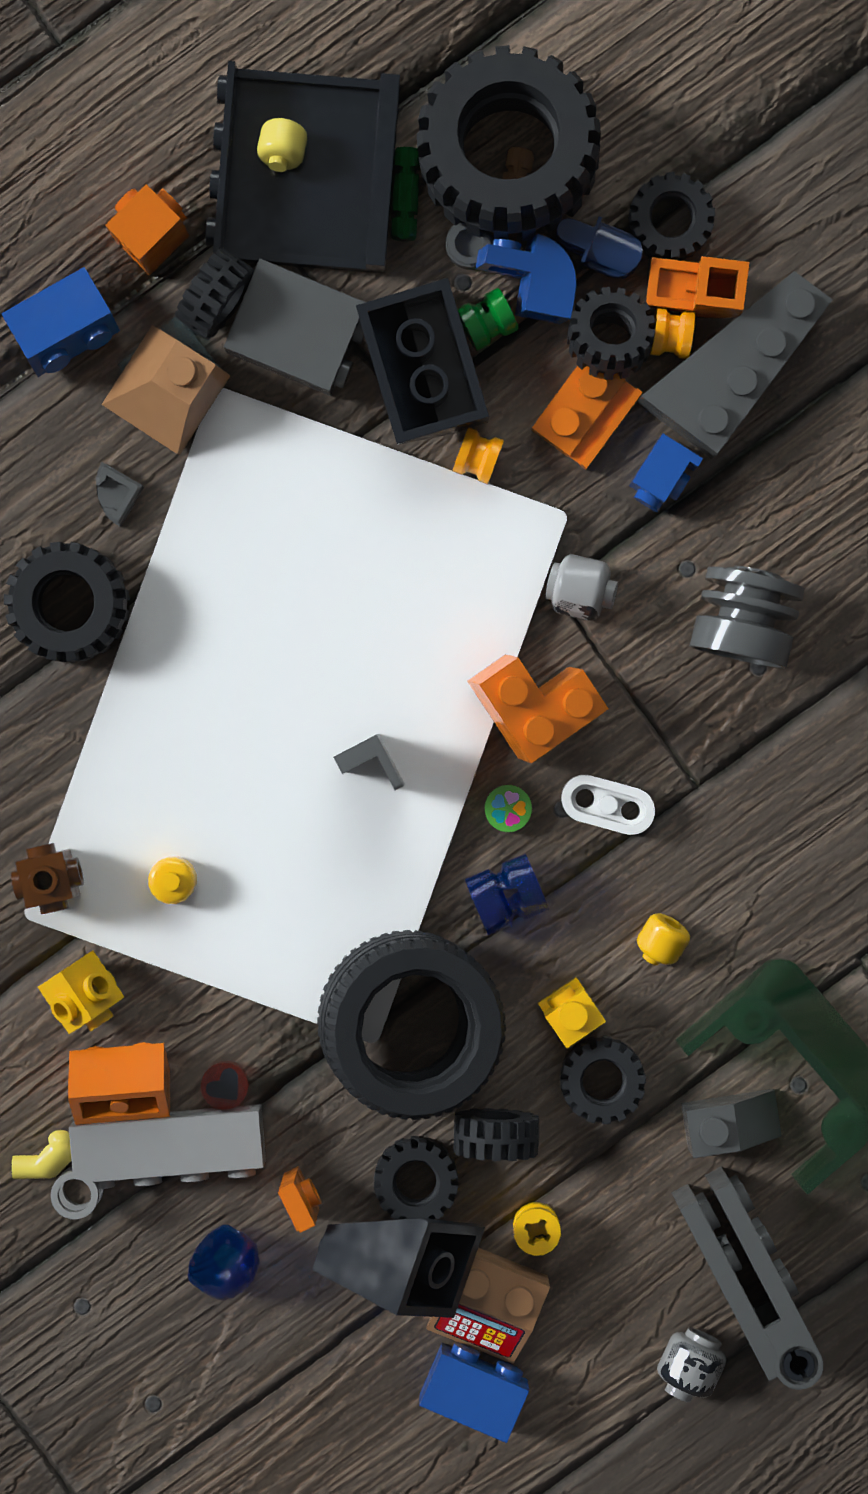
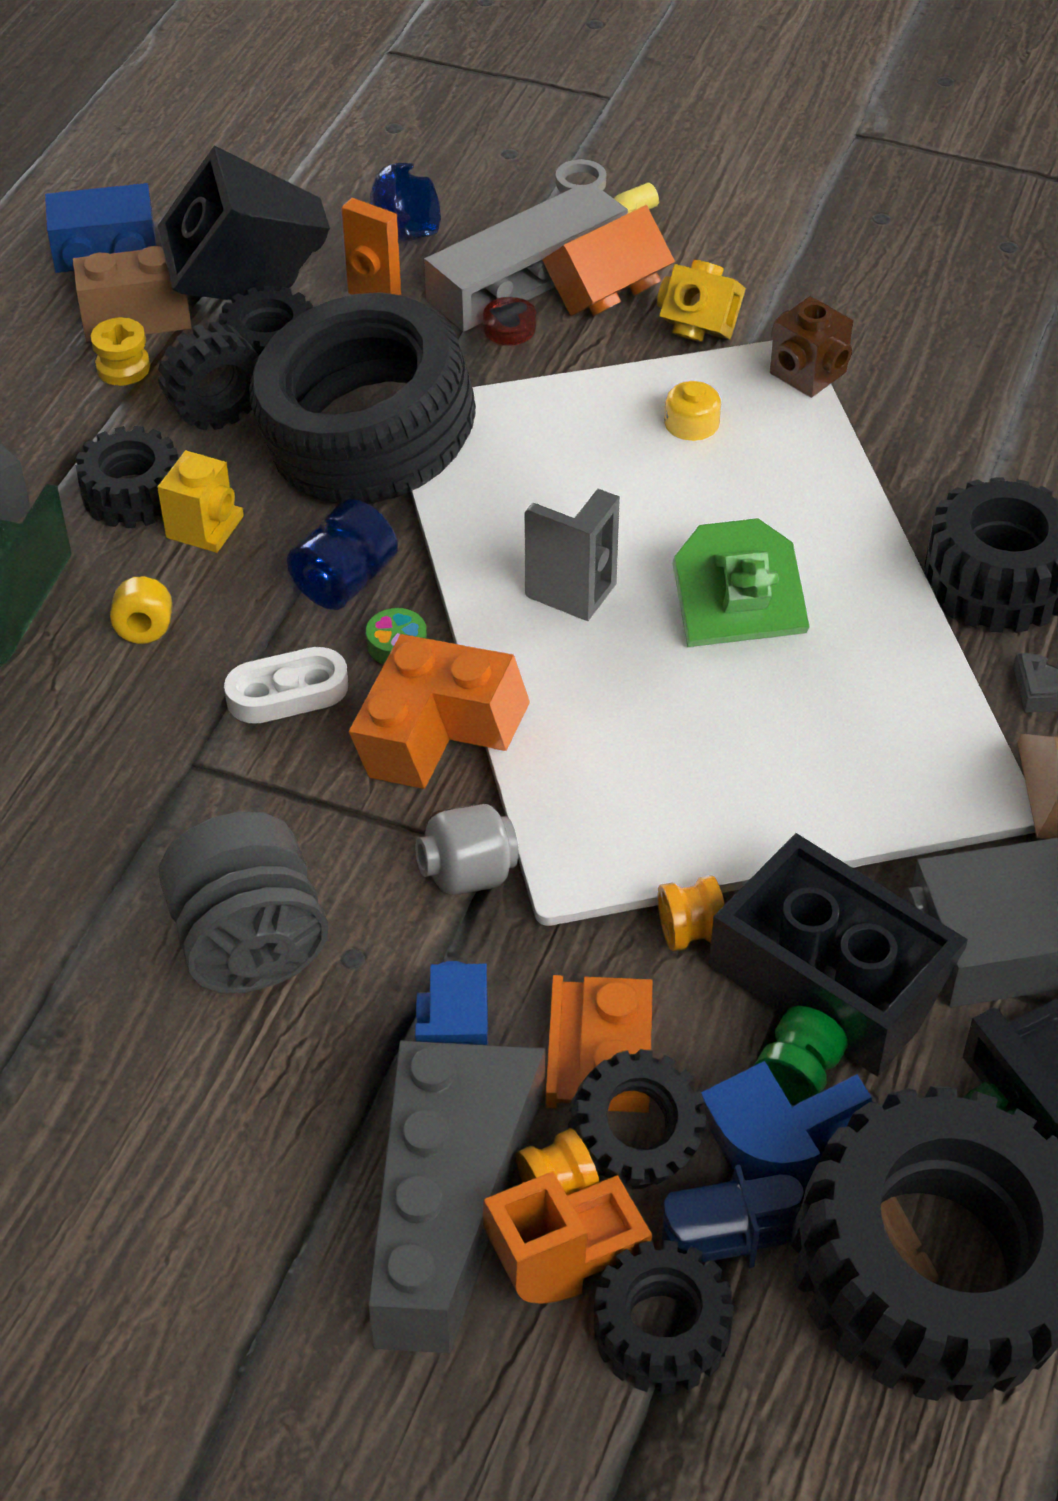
camera: 150 degrees right, 40 degrees down
(270, 680) = (738, 584): none -> bright green piece

